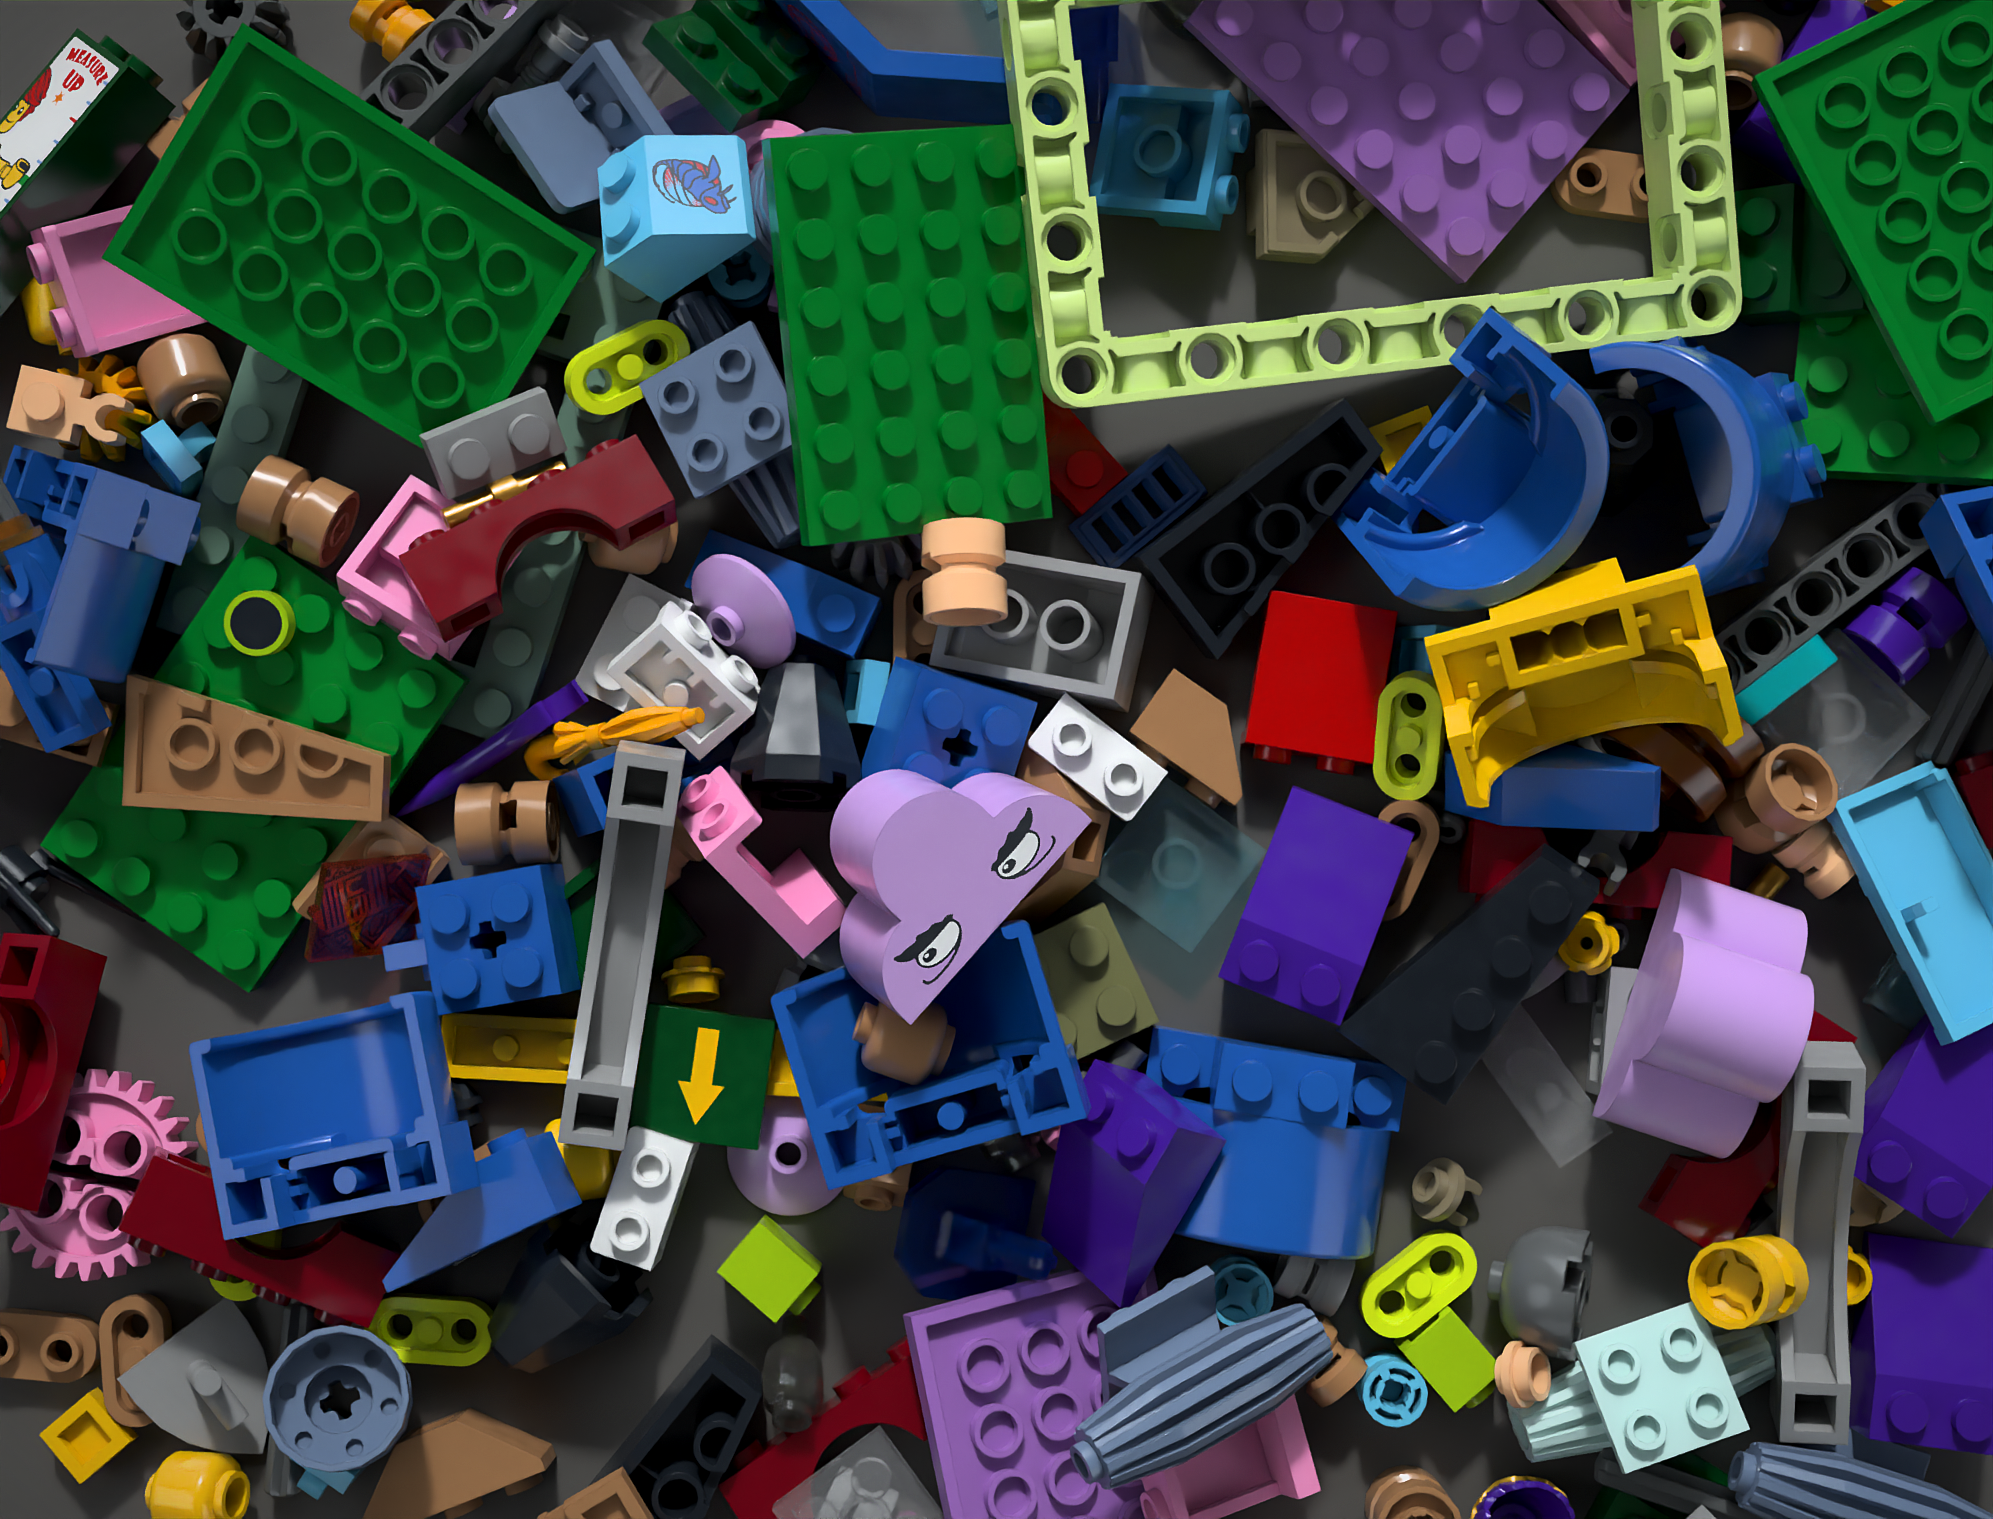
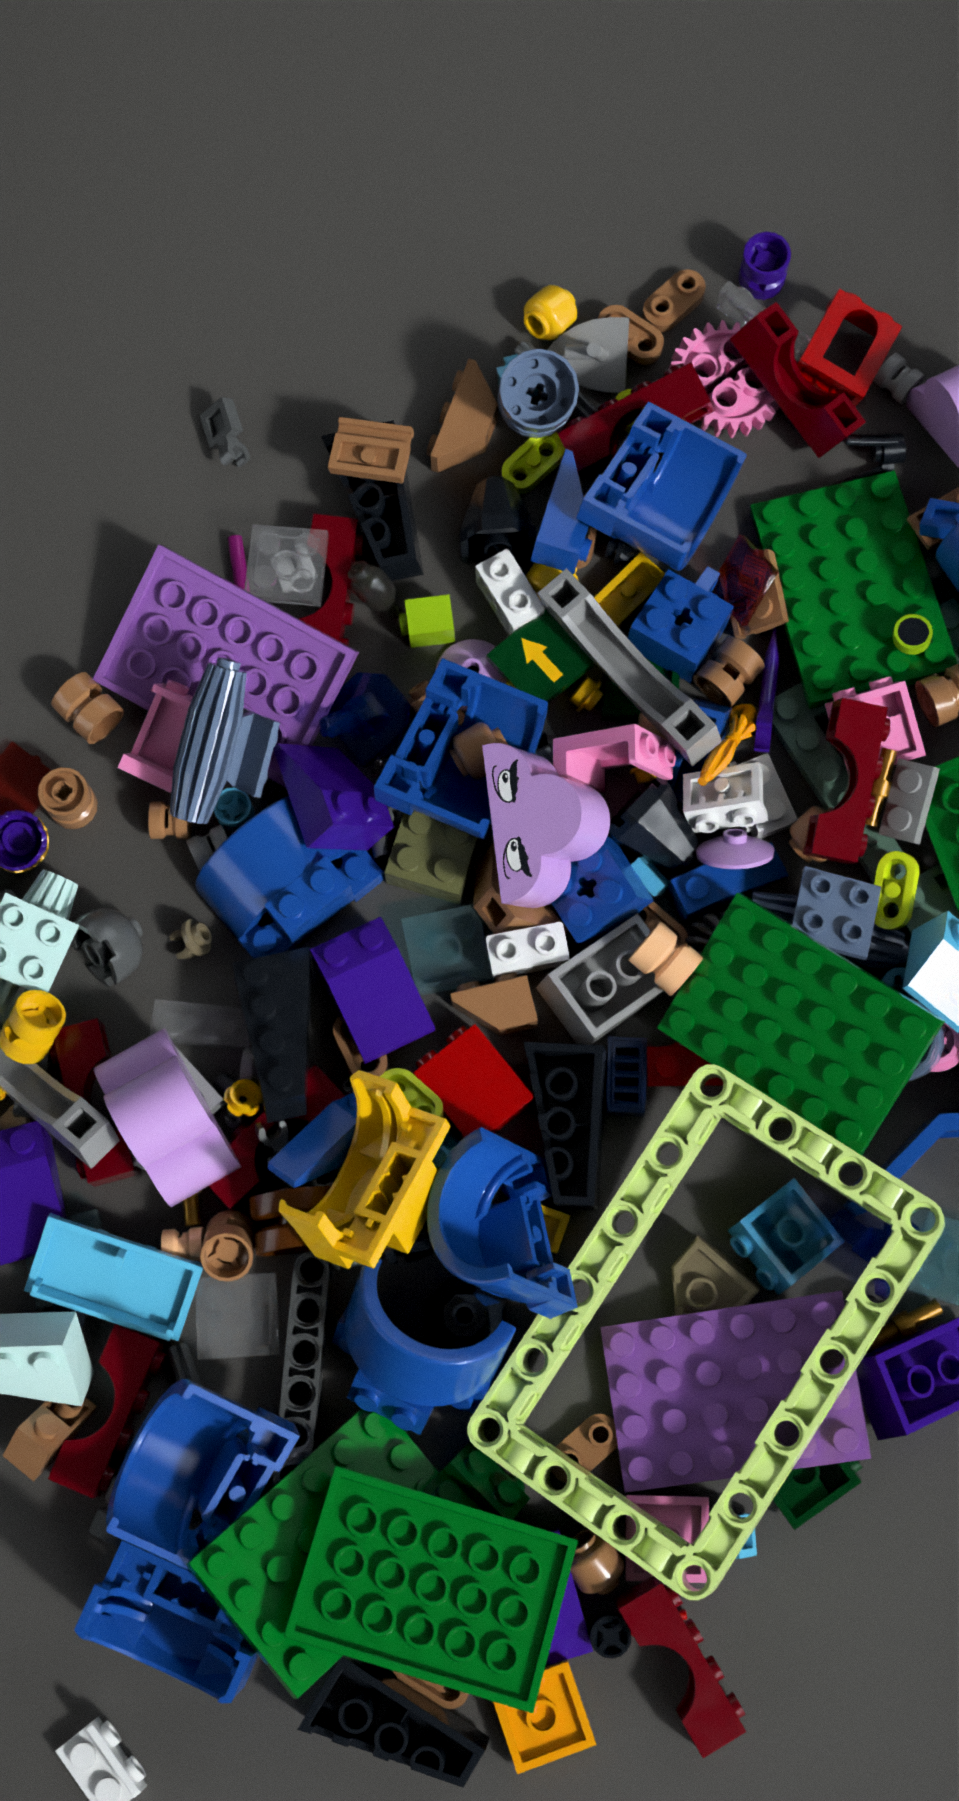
camera: 135 degrees right, 10 degrees down
(87, 1436) = (615, 288): yellow plate -> none
(226, 758) = (858, 575): medium nougat wing -> none
(1384, 1378) = (134, 846): medium azure wheel -> none
(1420, 1288) = (163, 893): neon yellow plate -> none
(1451, 1360) = (119, 876): lime brick -> none
(1523, 1374) = (84, 895): light nougat plate -> none
(1784, 679) = (279, 1295): teal beam -> none
(1910, 617) = (253, 1370): dark purple wheel -> none

